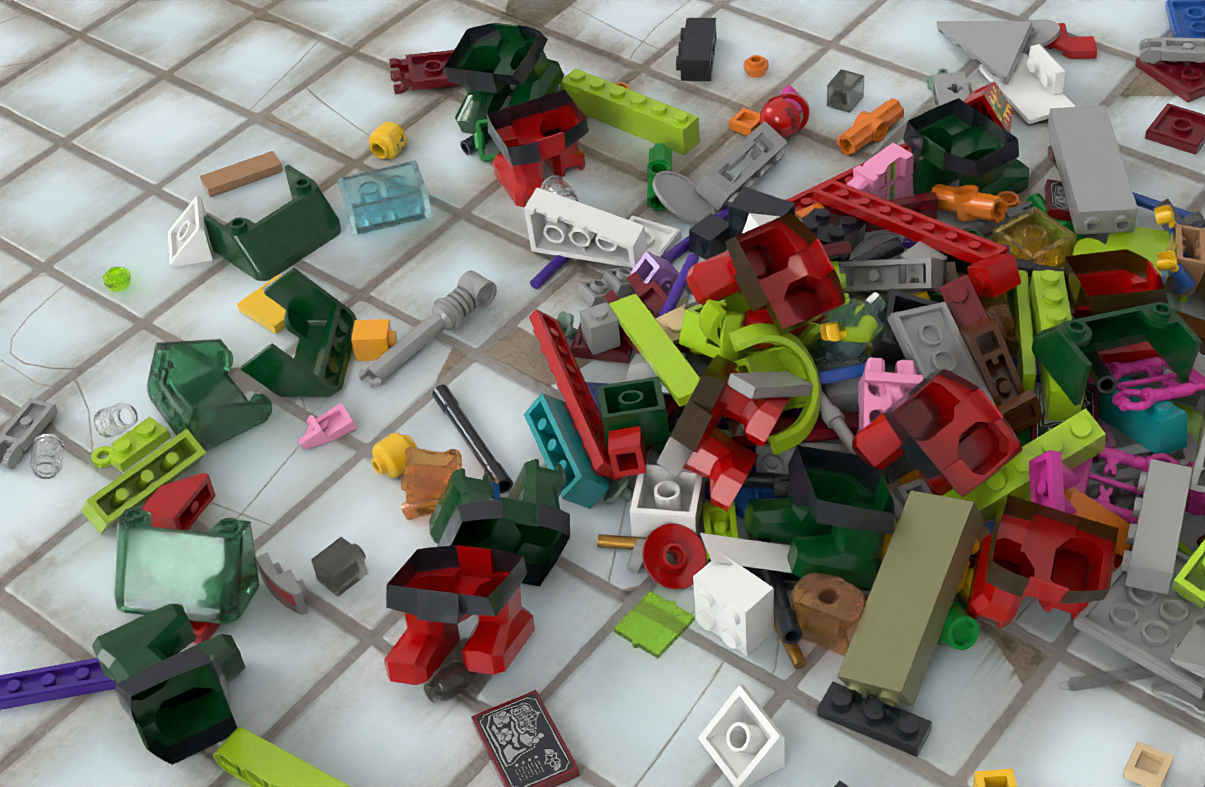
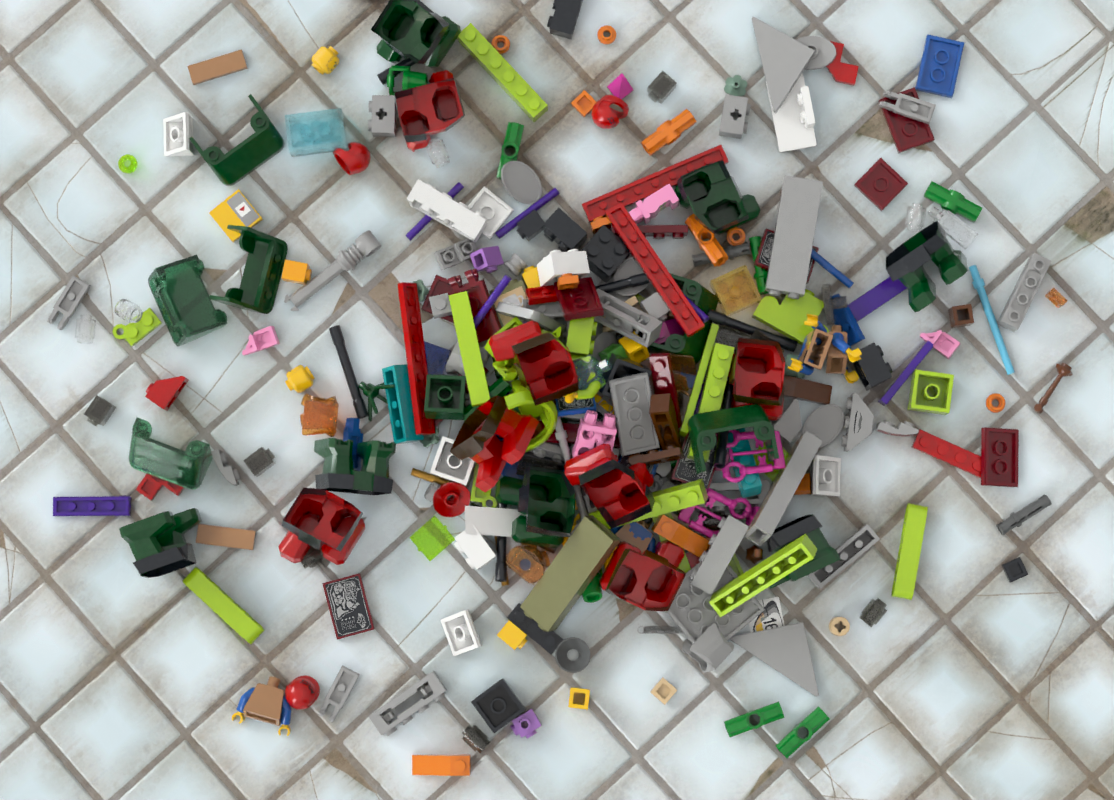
camera: 10 degrees right, 40 degrees up
(67, 548) = (99, 411): none -> clear smoke brick
(143, 480) = (146, 370): lime brick -> none
(289, 683) = (225, 536): none -> medium nougat tile
(447, 211) = (353, 160): none -> red helmet
(475, 174) = (387, 126): none -> light grey brick
(514, 447) = (372, 392): none -> dark green plant
(627, 452) = (436, 431): red brick -> none
(672, 323) = (485, 327): tan plate -> none
(767, 150) = (584, 139): light grey brick -> none
(769, 384) = (522, 428): light grey tile -> none
(836, 729) = (512, 635): none -> yellow brick
(962, 725) = (568, 665): none -> dark grey piece
(992, 104) = (751, 145): red torso -> none
(994, 275) = (687, 349): red brick -> none
(1049, 481) = (659, 537): dark pink tile -> none

